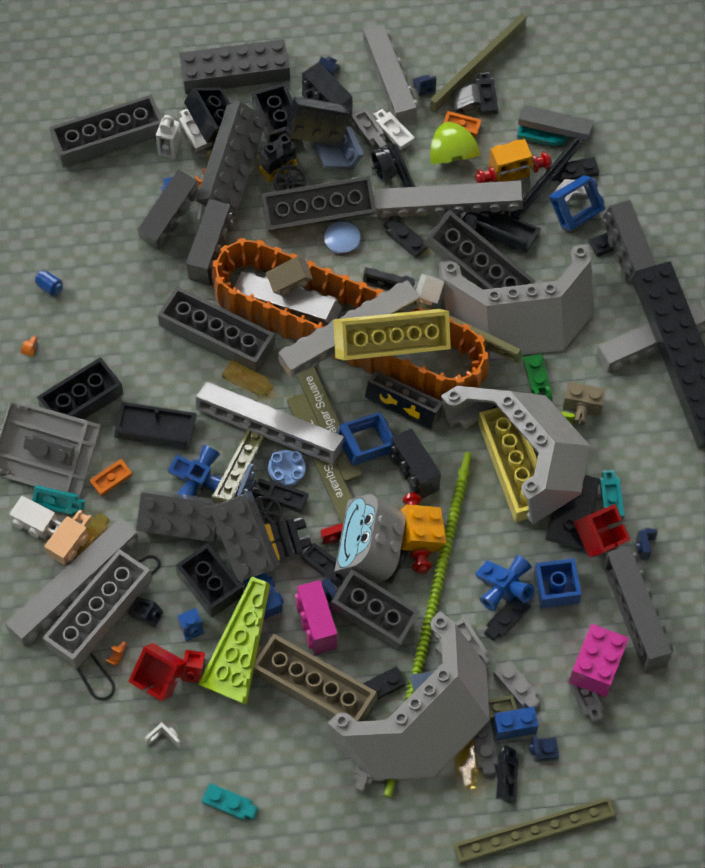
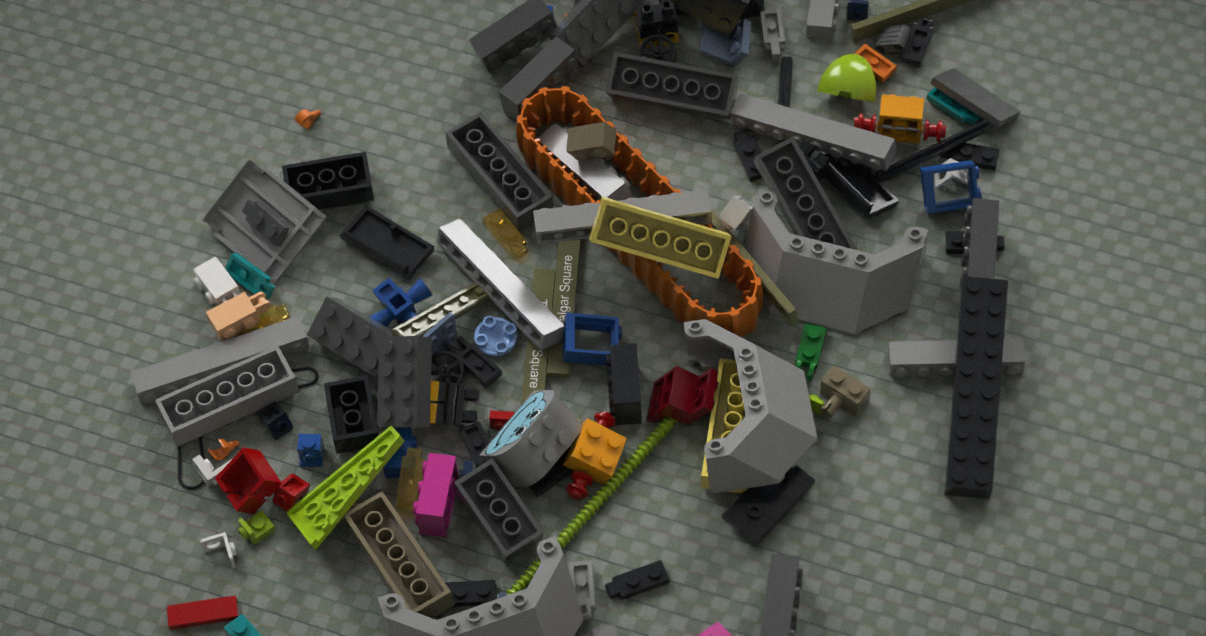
camera: 30 degrees right, 5 degrees down
(48, 283) = (361, 63): blue brick -> none
(111, 477) = (314, 275): orange plate -> none
(113, 678) = (205, 470): none -> white bracket
(176, 796) = (202, 612): none -> red tile
(180, 707) = (255, 527): none -> lime bracket
(288, 614) = (409, 478): none -> clear yellow hinge
(342, 237) = (683, 130): light blue dish -> none
(383, 163) = (765, 71): black wheel -> none
(384, 280) = (692, 181): black hinge -> none
(394, 129) = (798, 42): white hinge -> none
(404, 399) = (651, 316): brick -> none
(465, 454) = (682, 395): none -> dark red bracket
(505, 582) = (652, 542): blue brick -> none
(557, 583) = (707, 566): blue brick -> none
(596, 534) = (777, 531): red piece -> none
(611, 491) = (819, 503): teal hinge -> none
(642, 542) = (828, 559): dark blue bracket -> none

